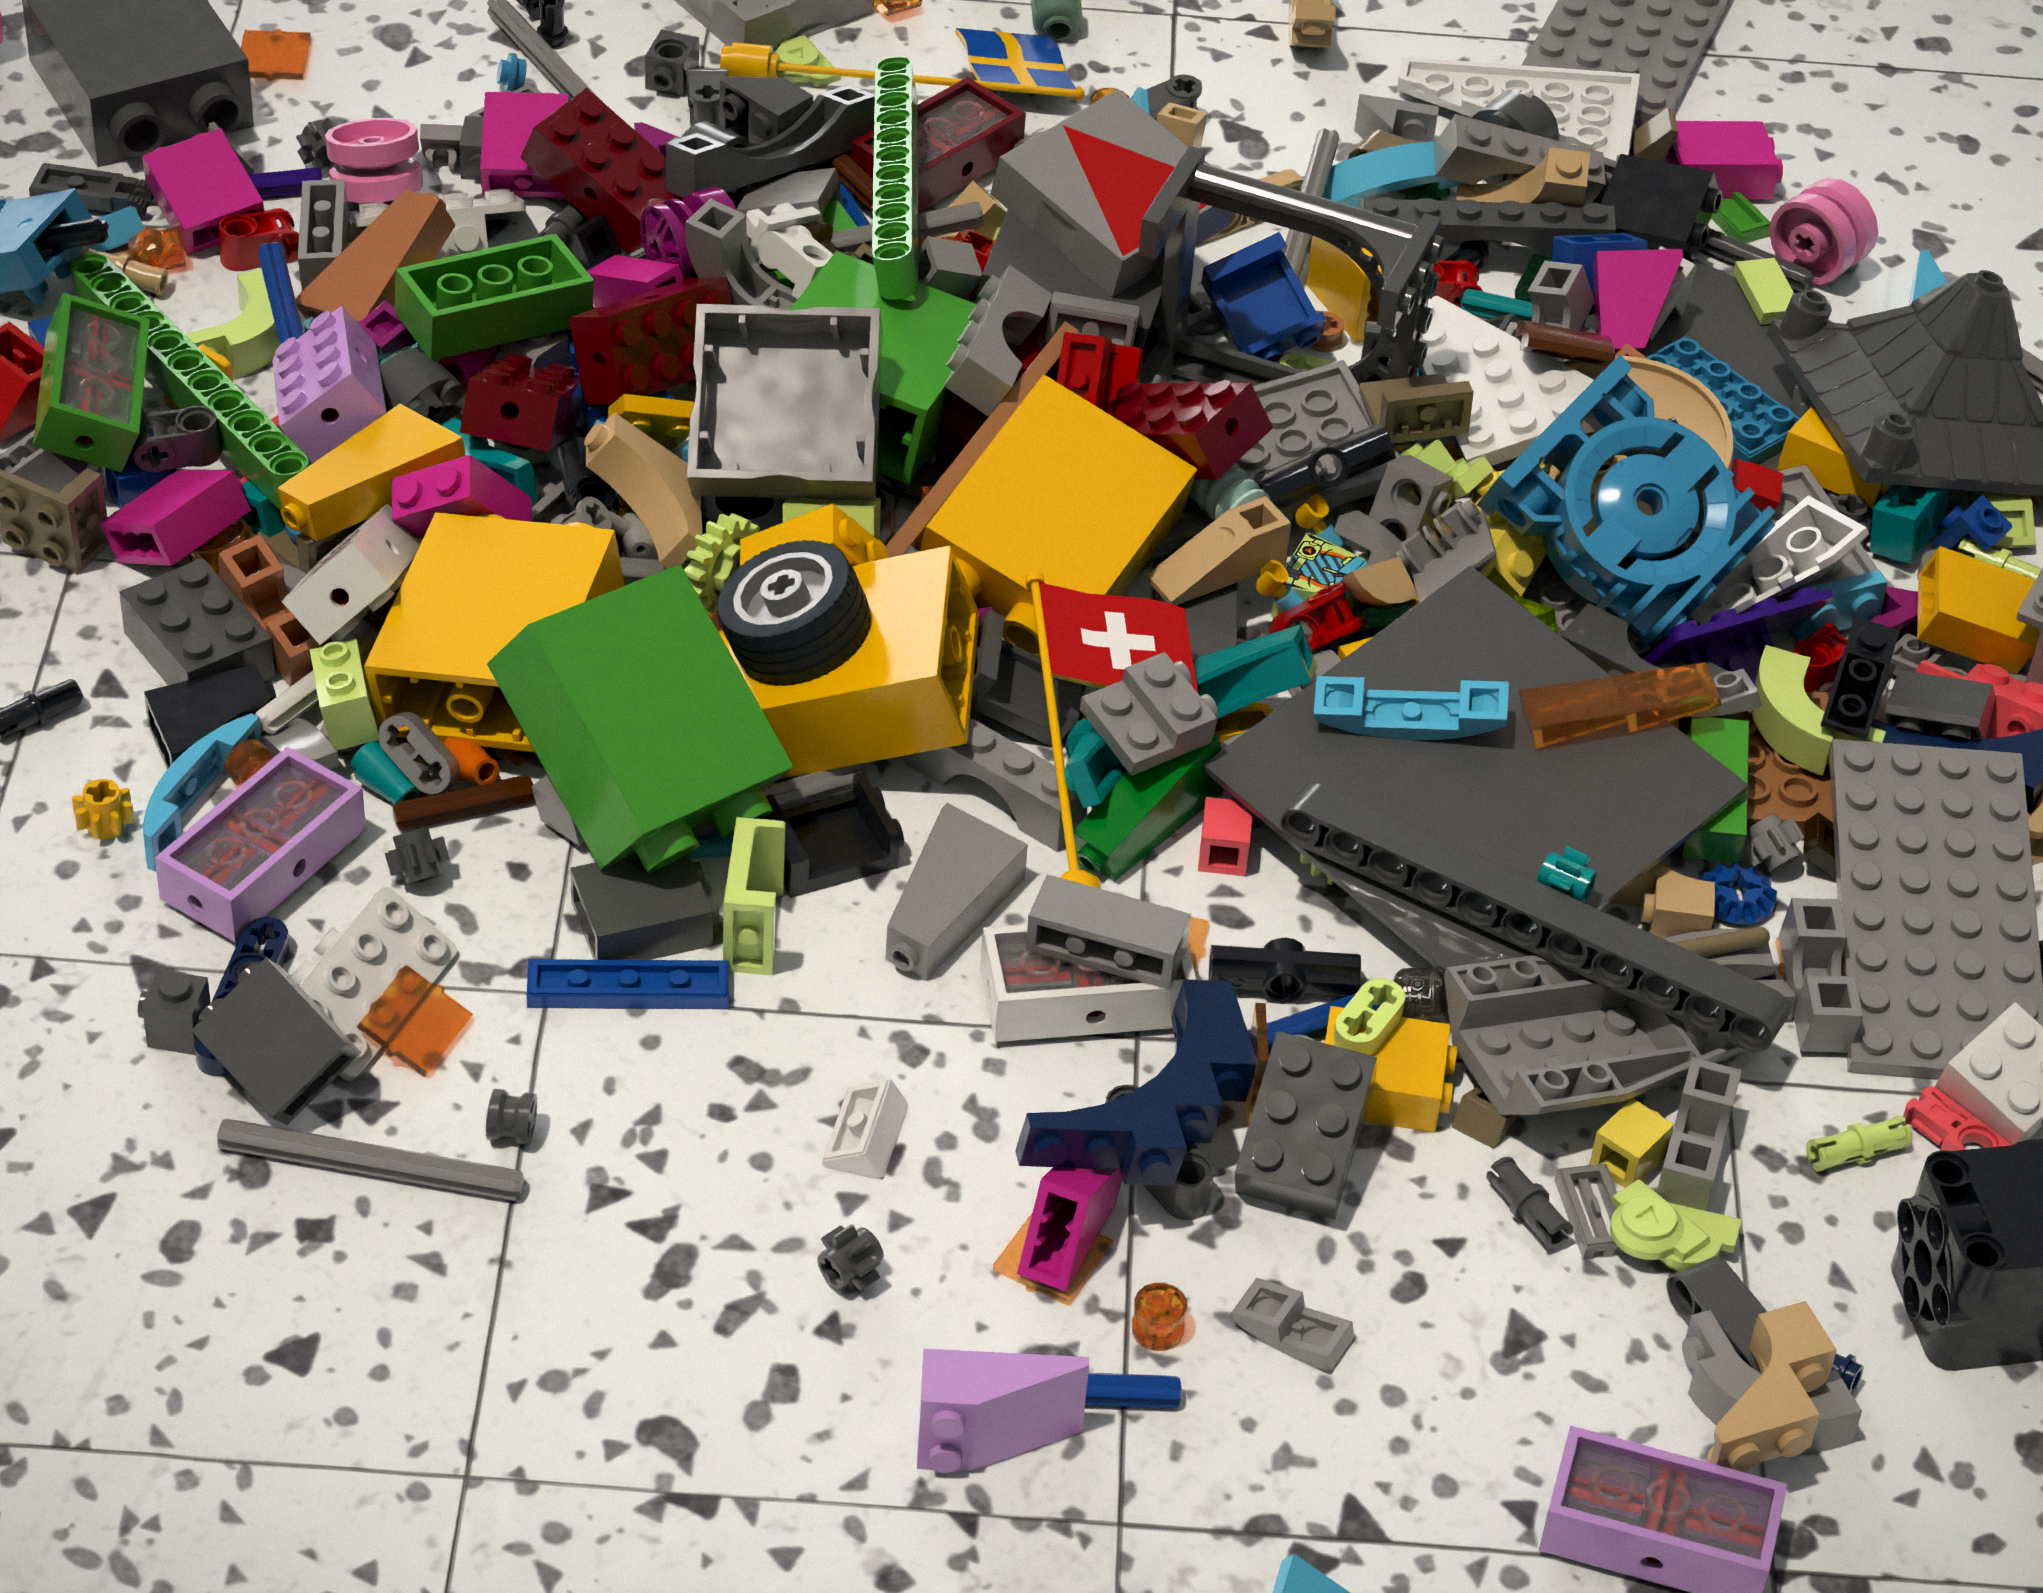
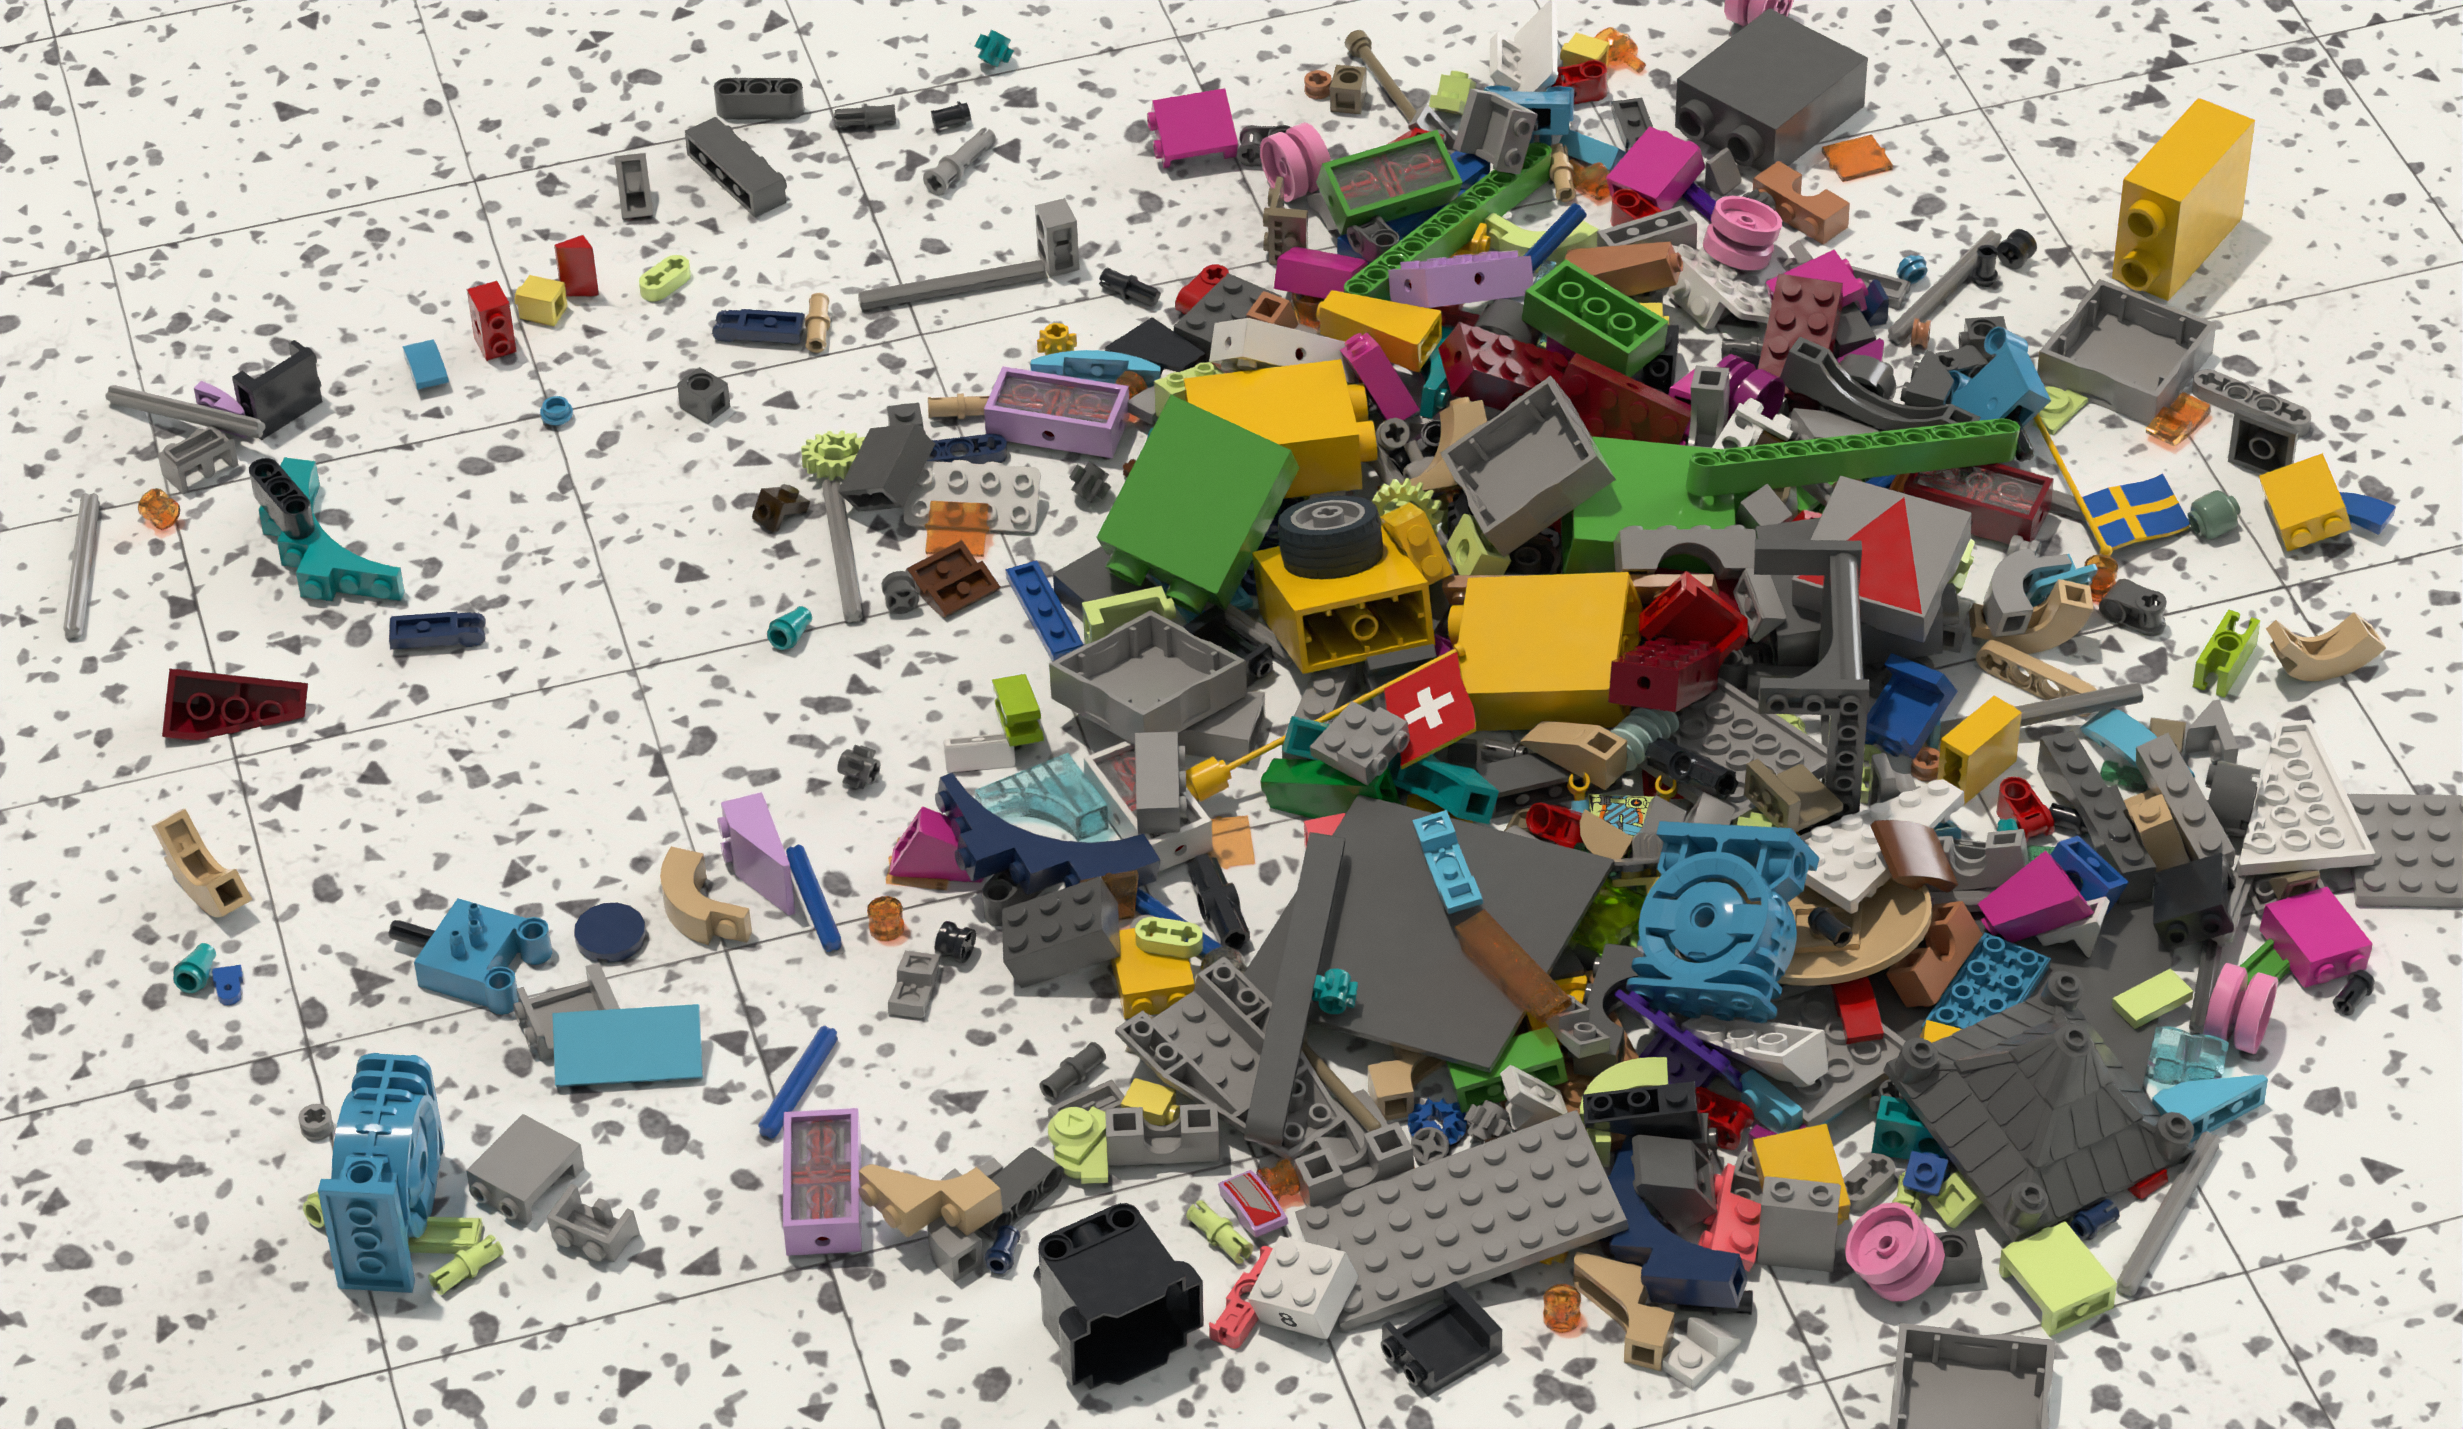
camera: 75 degrees right, 0 degrees up
(79, 256) = (1495, 130): none -> light grey panel
(115, 638) = (1199, 287): none -> red piece
(158, 945) = (956, 406): none -> tan pin
(179, 1102) = (830, 454): none -> yellowish green gear
(238, 1203) = (777, 502): none -> dark brown bracket
(366, 97) = (1815, 216): none -> nougat arch
(511, 1263) = (787, 629): none -> teal cone
(514, 1055) = (952, 579): none -> reddish brown slope
(626, 102) = (1920, 333): none -> nougat bush
(813, 49) = (2004, 387): none -> dark azure piece
(842, 1052) = (1017, 710): none -> lime piece
(892, 892) = (1148, 678): none -> light grey tile
(1011, 1065) = (1049, 792): none -> clear light blue arch
(1020, 1536) = (690, 911): none -> tan arch
(1242, 1252) = (955, 941): none -> black wheel
(1273, 75) = (2226, 653): none -> lime piece
(1431, 1505) = (798, 1081): none -> blue axle
(1773, 790) = (1530, 1099): none -> white slope
(1778, 897) = (1424, 1144): none -> light grey wheel
(1799, 165) = (2358, 986): none -> black pin
(1800, 1059) = (1280, 1179): none -> clear orange wheel
(1821, 1093) = (1254, 1203): none -> slope
(1863, 292) = (2185, 1057): none -> clear light blue brick

